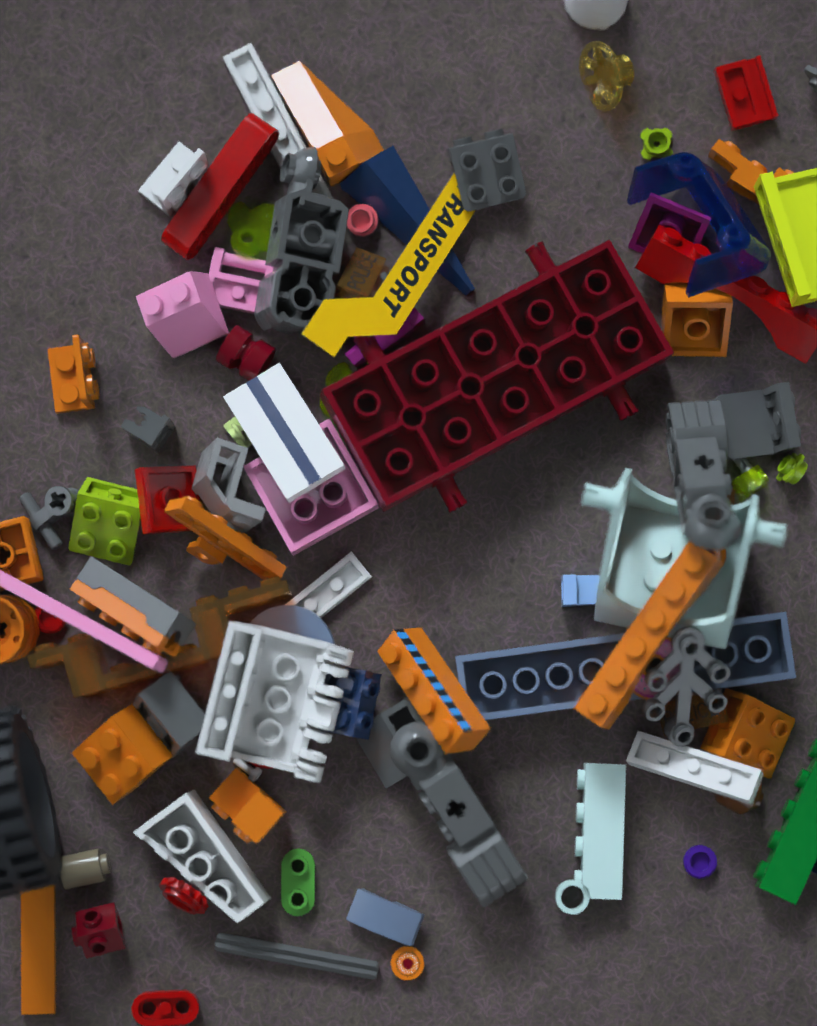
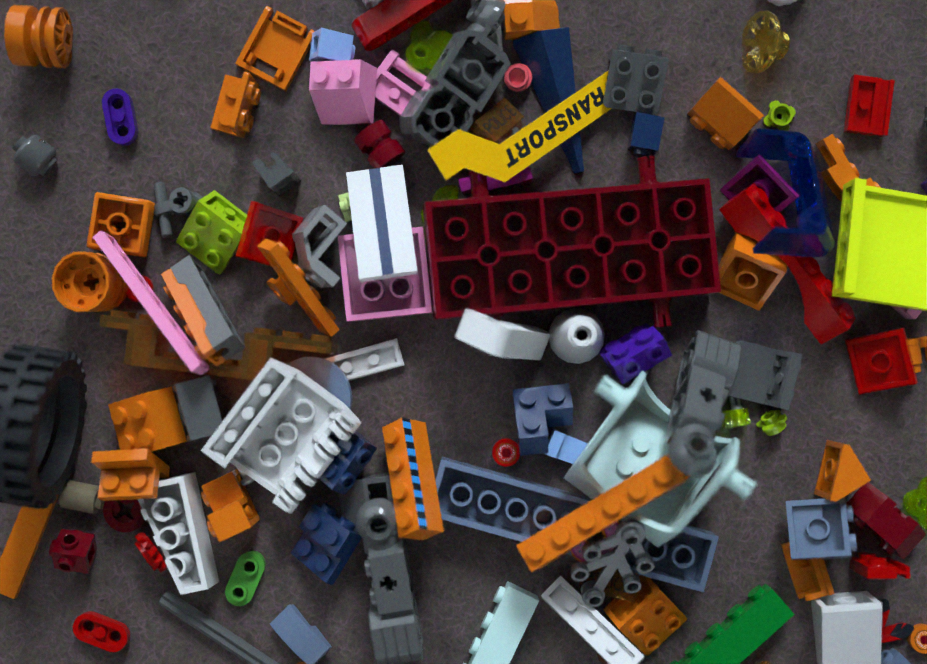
camera: 20 degrees right, 5 degrees up
(90, 294) = (277, 44): none -> orange container
(121, 867) = (124, 523): none -> dark red gear
(126, 815) = (129, 474): none -> orange bracket
(149, 271) = (331, 46): none -> light blue brick
(369, 801) = (326, 542): none -> dark blue plate
(464, 496) = (502, 337): none -> white beam
(521, 623) = (505, 452): none -> red tile
(523, 222) = (645, 134): none -> dark blue brick
(536, 562) = (536, 411): none -> dark blue brick
(542, 479) = (564, 338): none -> white cone
(596, 167) = (724, 115): none -> orange slope
(615, 449) = (635, 352): none -> dark purple plate

